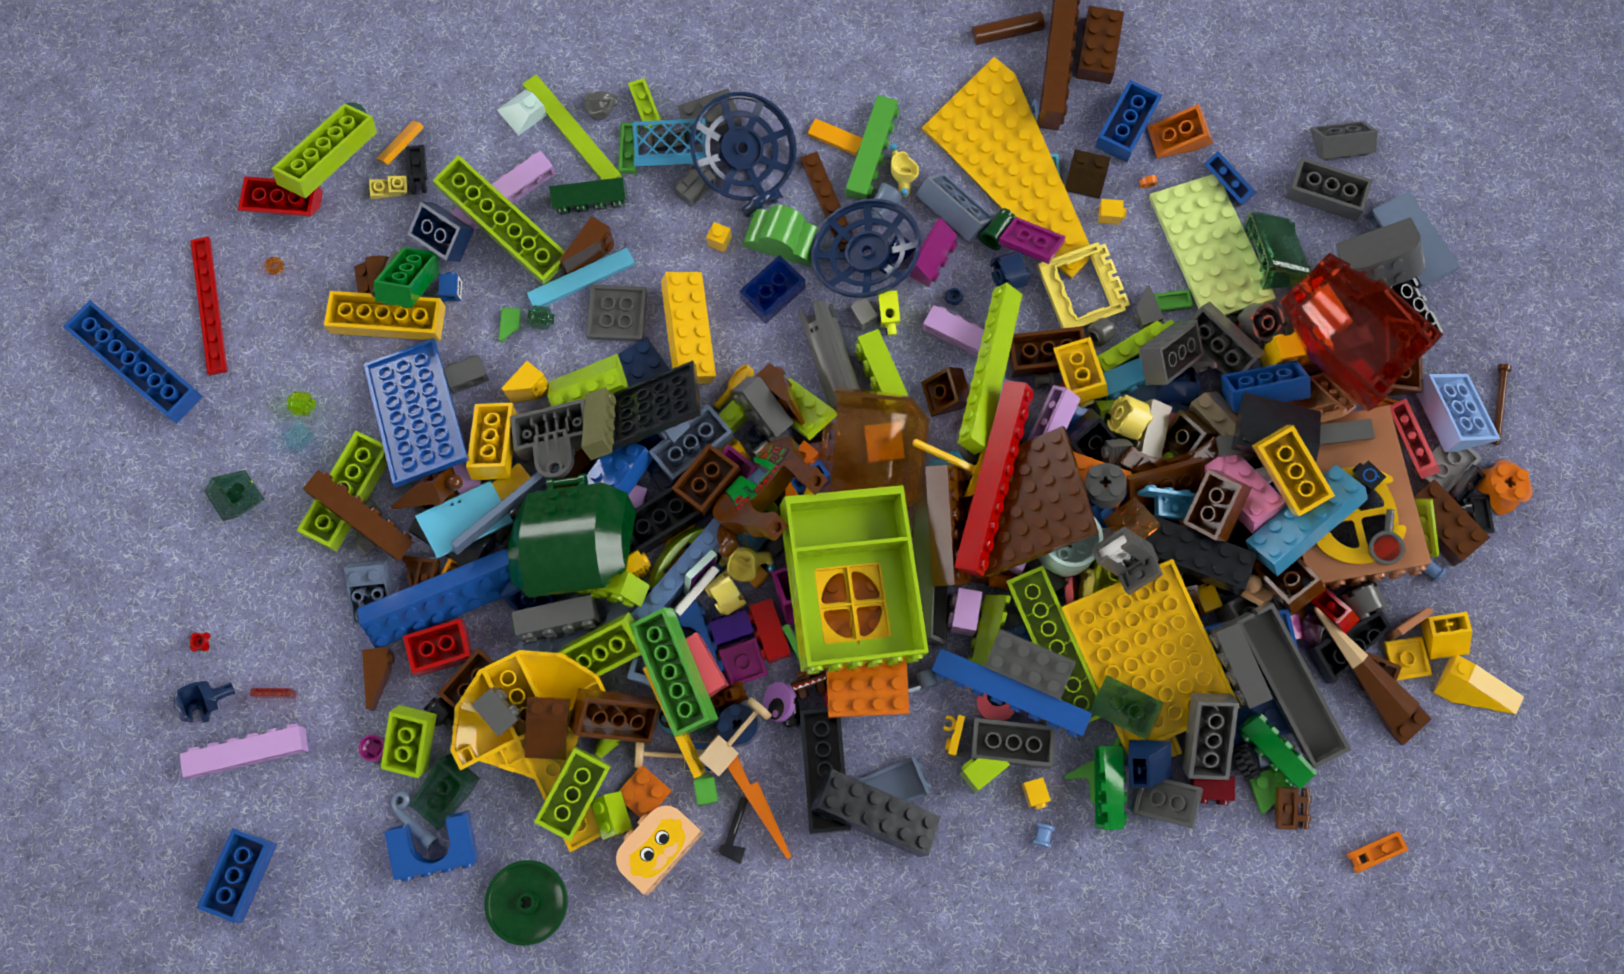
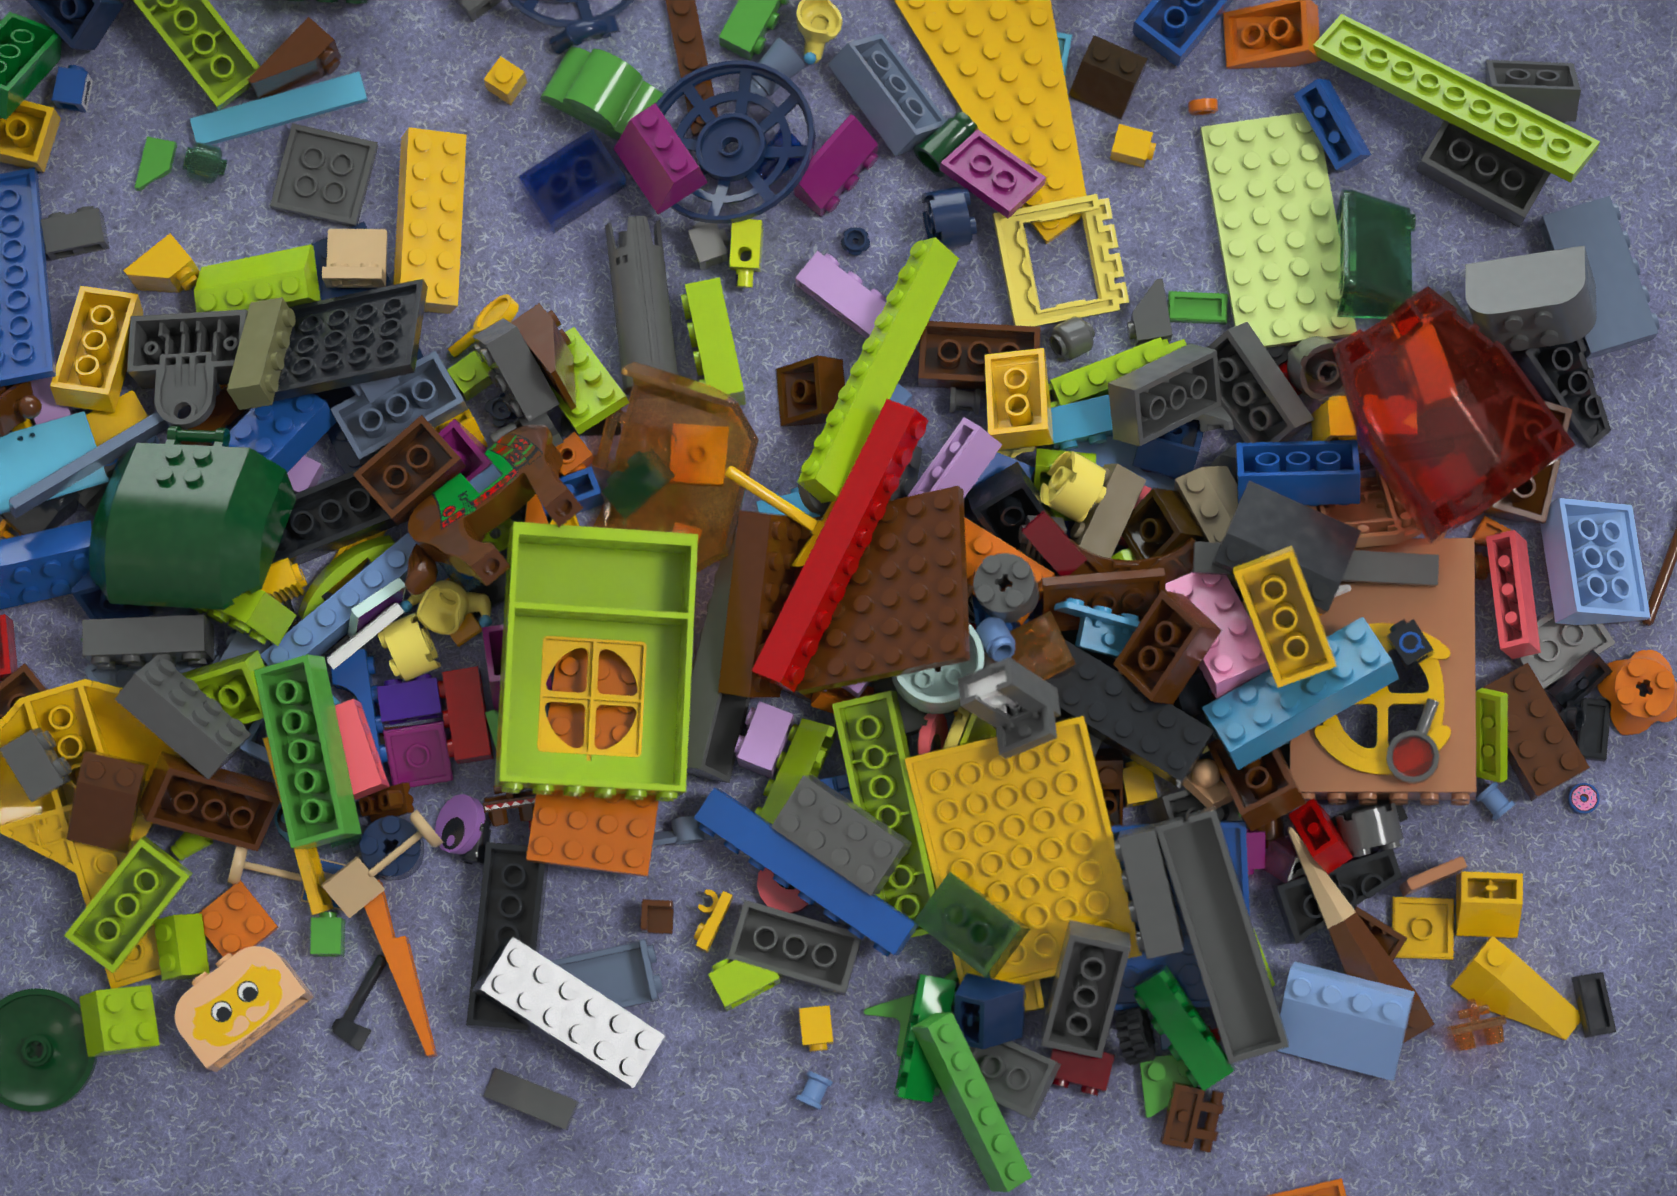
camera: 10 degrees right, 5 degrees up
(579, 872) = (119, 1020): none -> lime brick
(588, 662) = (183, 716): none -> dark grey brick
(646, 358) = (356, 258): none -> tan bracket
(825, 264) = (658, 159): none -> magenta slope
(851, 465) = (637, 483): none -> clear green brick
(860, 875) = (531, 1099): none -> dark grey slope
(918, 739) = (657, 916): none -> reddish brown panel
(1107, 519) = (996, 638): none -> medium blue brick
(1128, 454) = (1054, 544): none -> dark red slope
(1151, 824) = (971, 1102): none -> bright green brick
(1305, 148) = (1456, 98): none -> lime plate
(1380, 726) = (1345, 1020): none -> light blue slope
(1468, 714) = (1491, 1027): none -> clear orange hips
(1486, 558) = (1583, 798): none -> tile
(1528, 688) = (1593, 1004): none -> black tile

